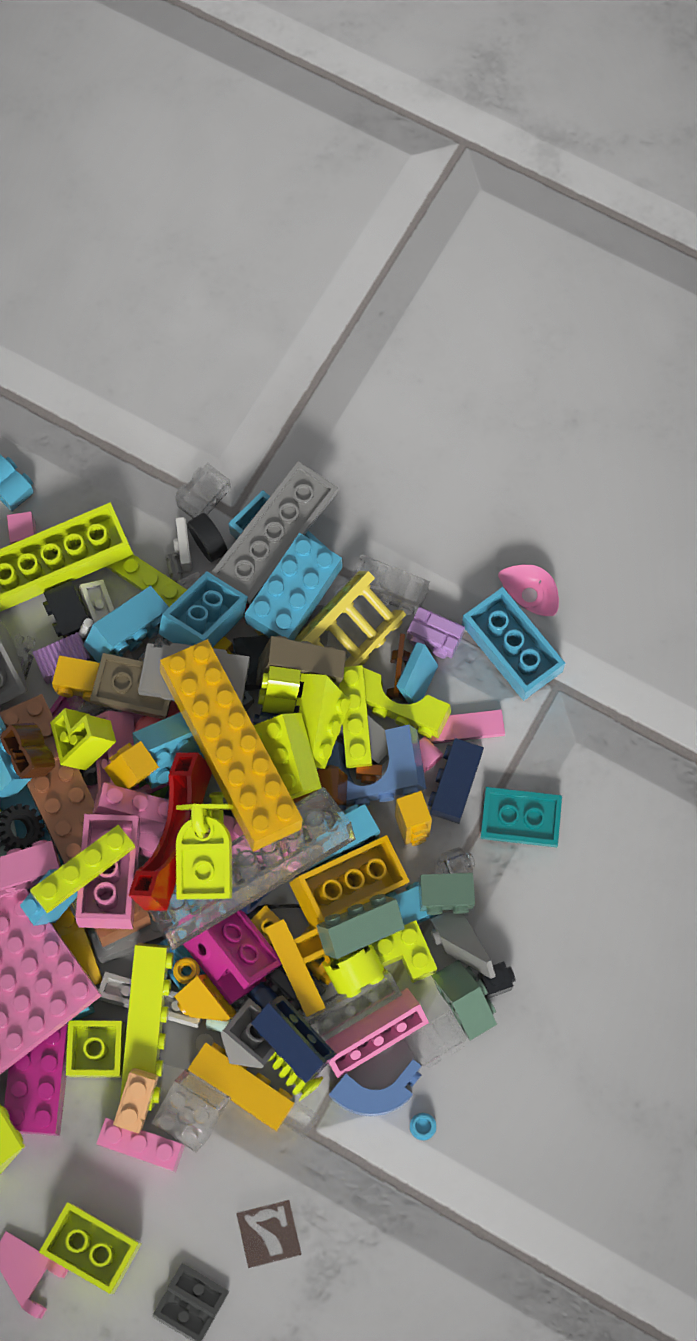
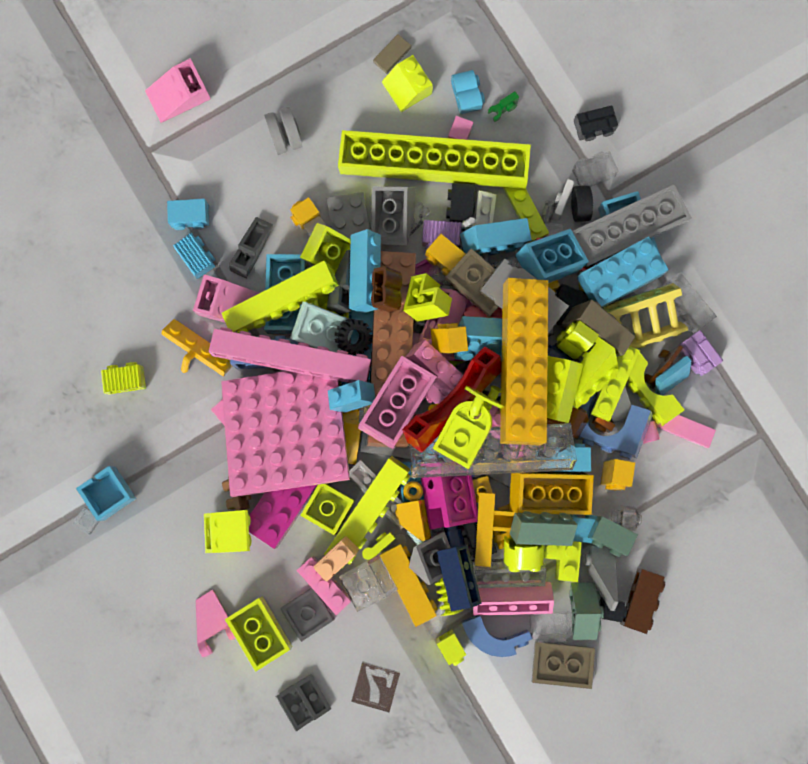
camera: 30 degrees right, 10 degrees up
(59, 472) = (506, 104): none -> green plate
(82, 869) = (381, 393): neon yellow plate -> none
(138, 1193) = (307, 614): none -> flat silver tile
(175, 440) = (596, 123): none -> black brick
(184, 1052) = (383, 541): none -> neon yellow plate
(331, 1130) = (451, 648): none -> neon yellow brick
(423, 1126) = (511, 676): medium azure plate -> none
(455, 780) = (659, 461): dark blue brick -> none
(476, 1077) = (563, 665): none -> dark tan plate
(513, 643) = (750, 390): medium azure brick -> none
(520, 577) = (792, 365): bright pink piece -> none
(521, 817) = (688, 510): teal plate -> none
(526, 949) = (643, 600): none -> reddish brown brick

